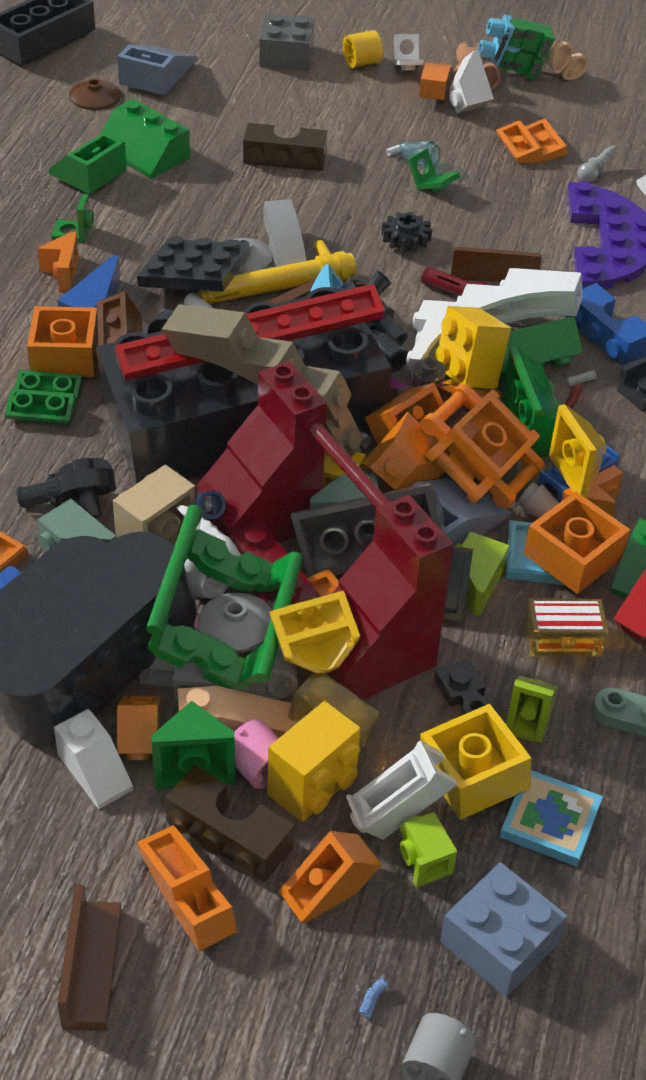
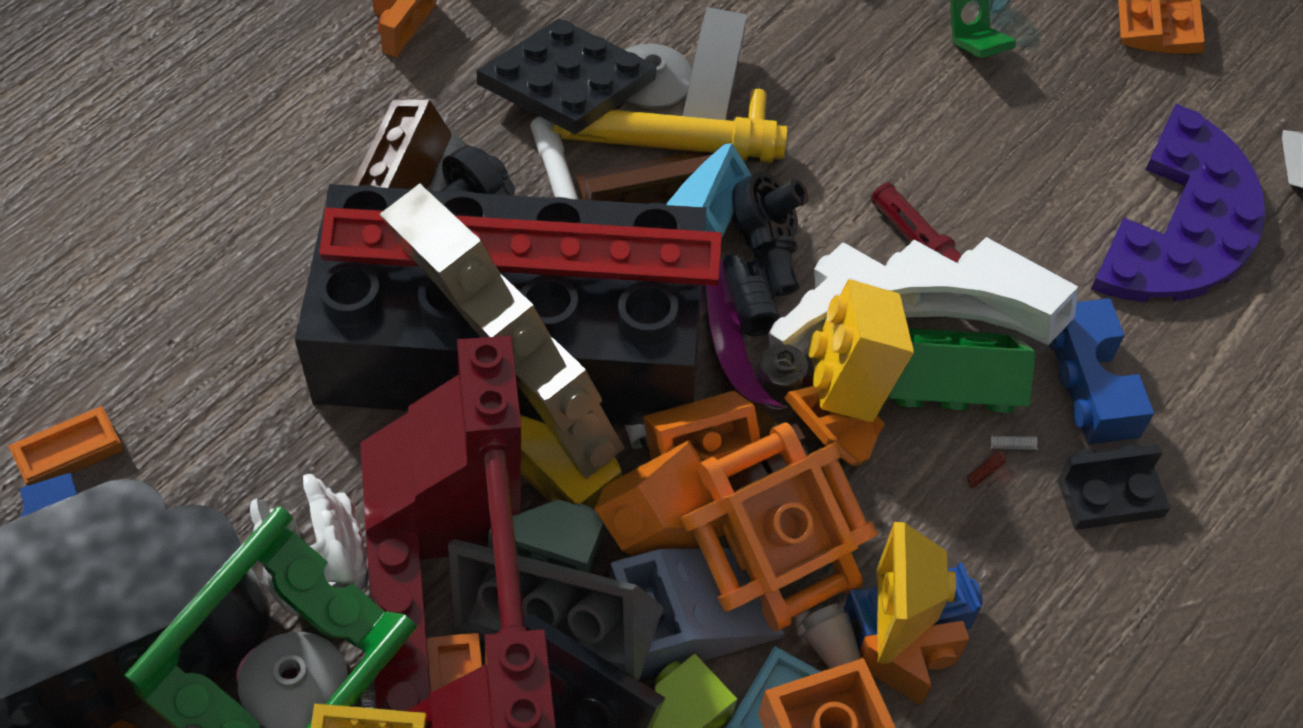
camera: 20 degrees right, 10 degrees up
(44, 397) = (267, 216): green slope -> none
(63, 340) = (323, 138): orange brick -> none
(67, 522) = (183, 449): sand green slope -> none
(79, 480) = (222, 366): black pin -> none
(96, 286) = (411, 75): blue slope -> none
(153, 505) = (278, 452): tan brick -> none
(214, 504) = (351, 480): dark blue hinge -> none
(406, 231) = (890, 113): black gear -> none
(490, 263) = (988, 213): reddish brown panel -> none
(530, 397) = (911, 466): green slope -> none
(595, 166) = (1220, 93): light grey bar -> none

